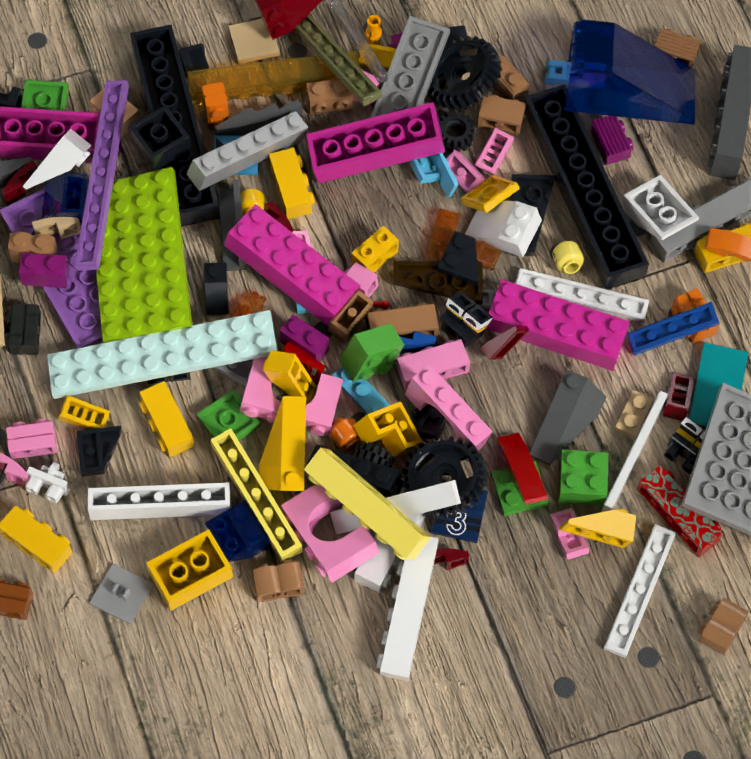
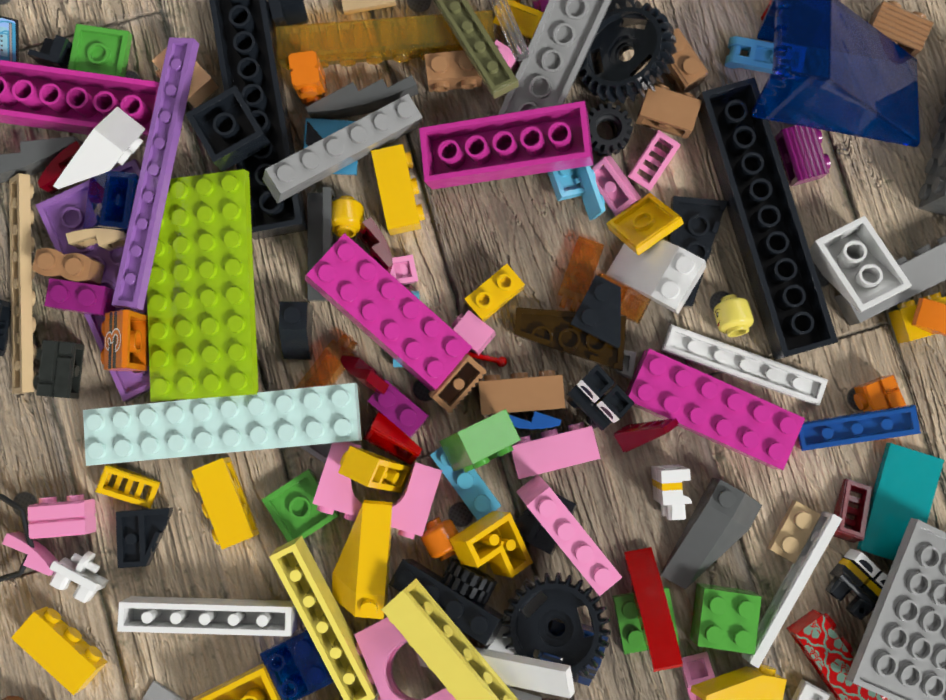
camera: 10 degrees right, 20 degrees up
(81, 298) = (125, 341): none -> orange slope
(280, 310) = (364, 373): none -> dark red slope
(528, 382) = (669, 491): none -> white hips

